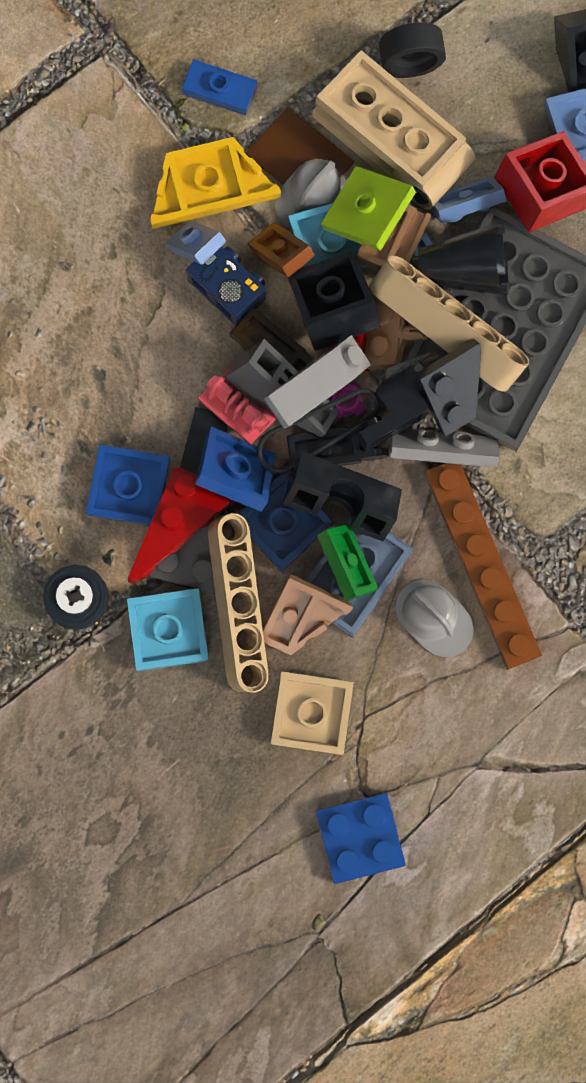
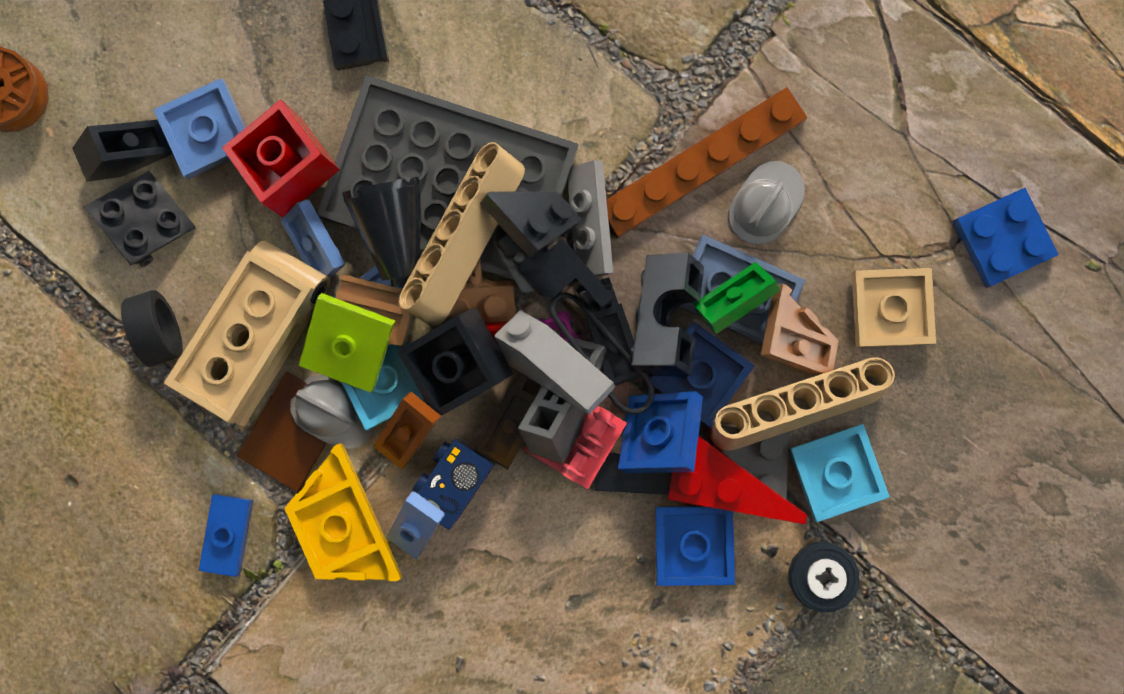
camera: 90 degrees left, 5 degrees up
(513, 57) = (139, 218): none -> black hinge

